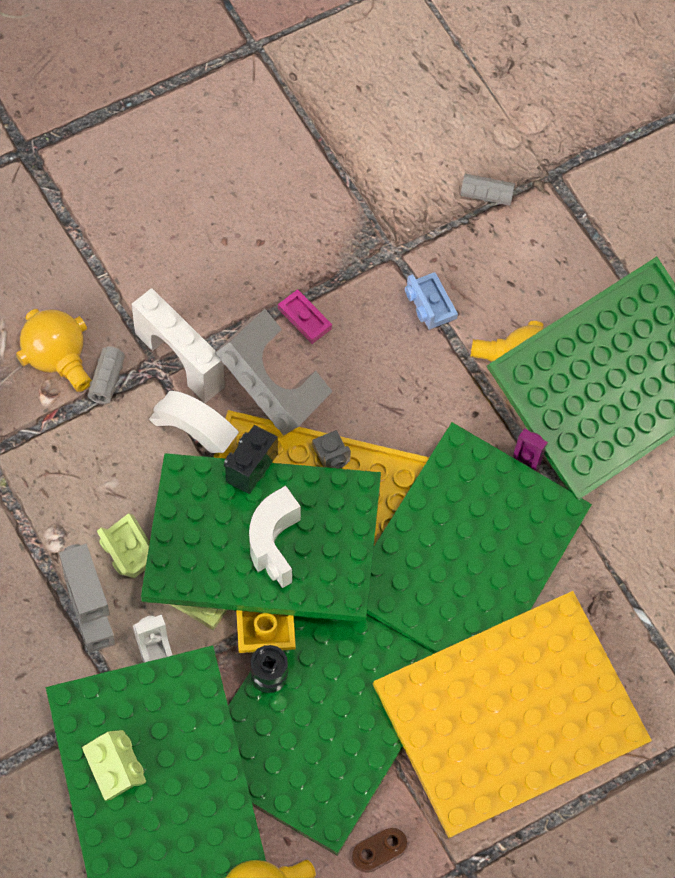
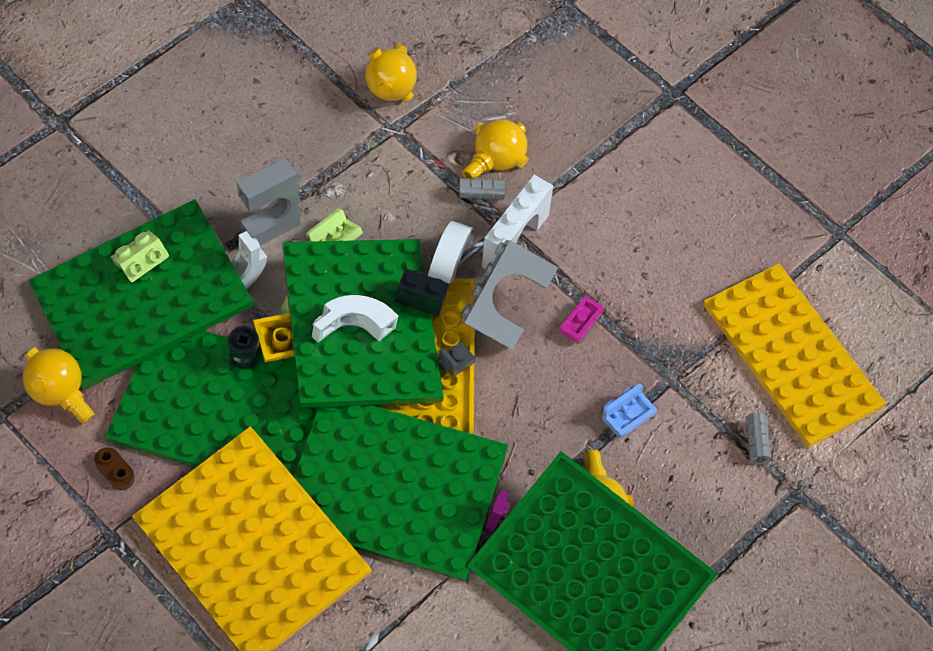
camera: 75 degrees right, 5 degrees down
(391, 131) = (794, 355): none -> yellow plate

